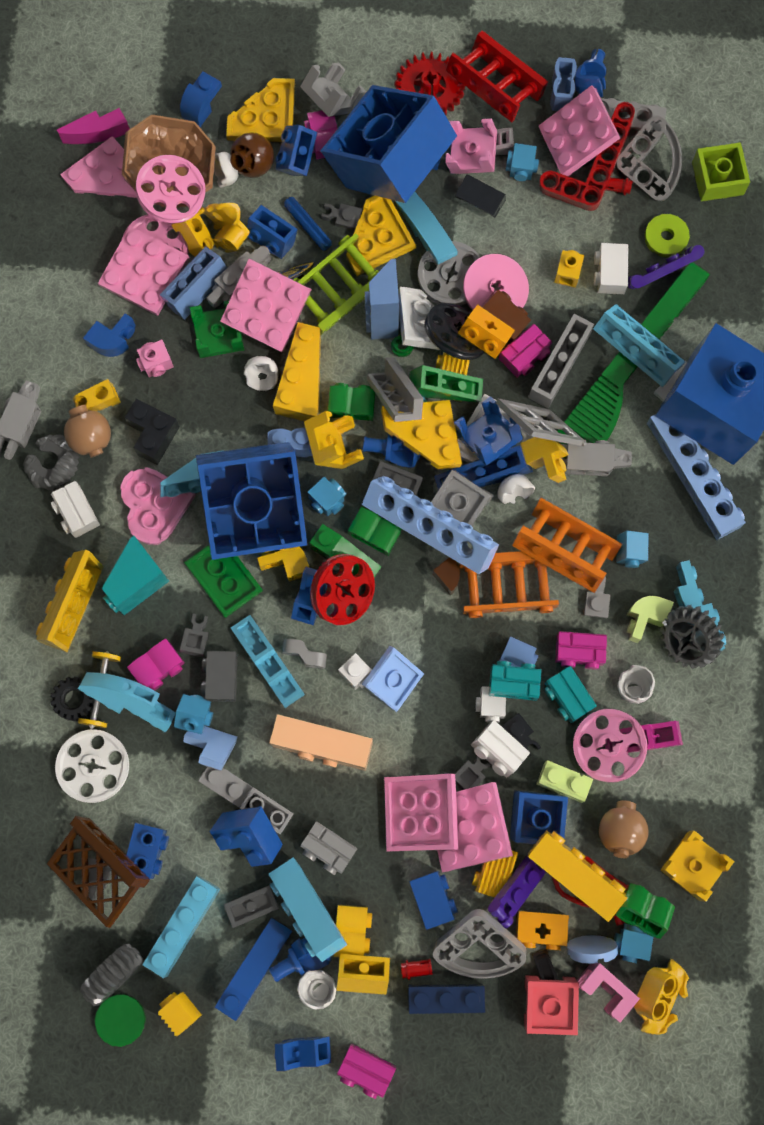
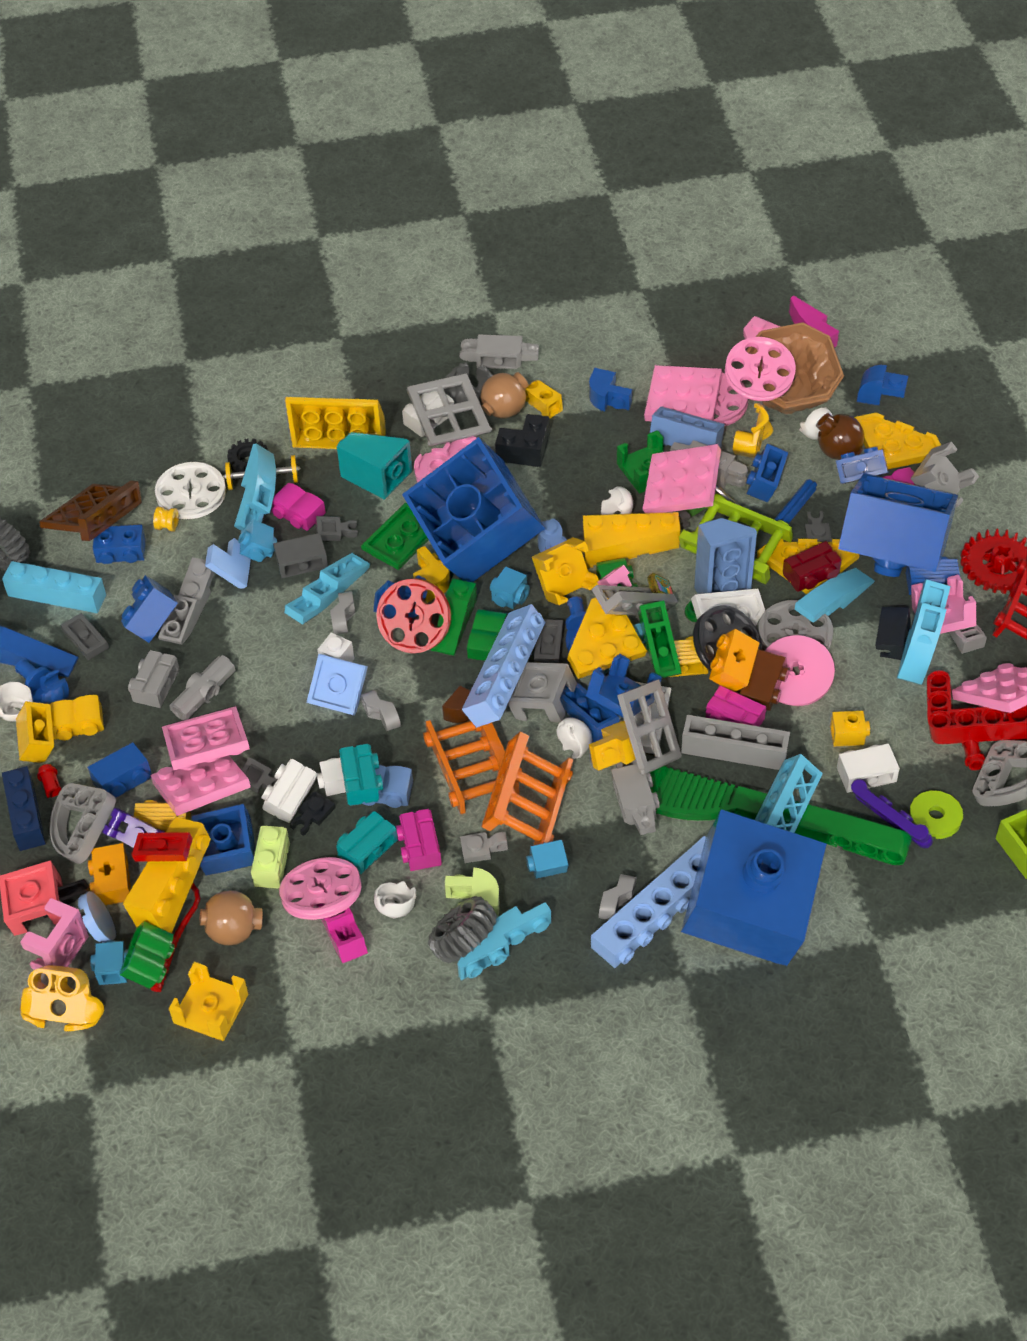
camera: 75 degrees right, 25 degrees down
(89, 488) = (447, 409): none -> light grey window
(126, 797) = (165, 518): none -> yellow wheel
(154, 359) = (597, 425): bright pink brick -> none
(195, 234) = (737, 416): yellow leg -> none
(307, 909) = (87, 667): medium azure brick -> none
(321, 743) = (253, 640): light nougat brick -> none
(352, 803) = (202, 687): none -> light grey piece
(361, 401) = (615, 577): none -> bright pink tile
(369, 366) = (659, 584): none -> clear yellow tile
(397, 233) = (812, 566): none -> dark red brick
(423, 652) = (380, 710): none -> light grey piece
(504, 164) = (924, 632): none -> medium azure slope
(522, 162) = (953, 657): dark azure brick -> none
(567, 874) = (162, 846): none -> red plate
(684, 510) = (617, 896): none -> light grey piece

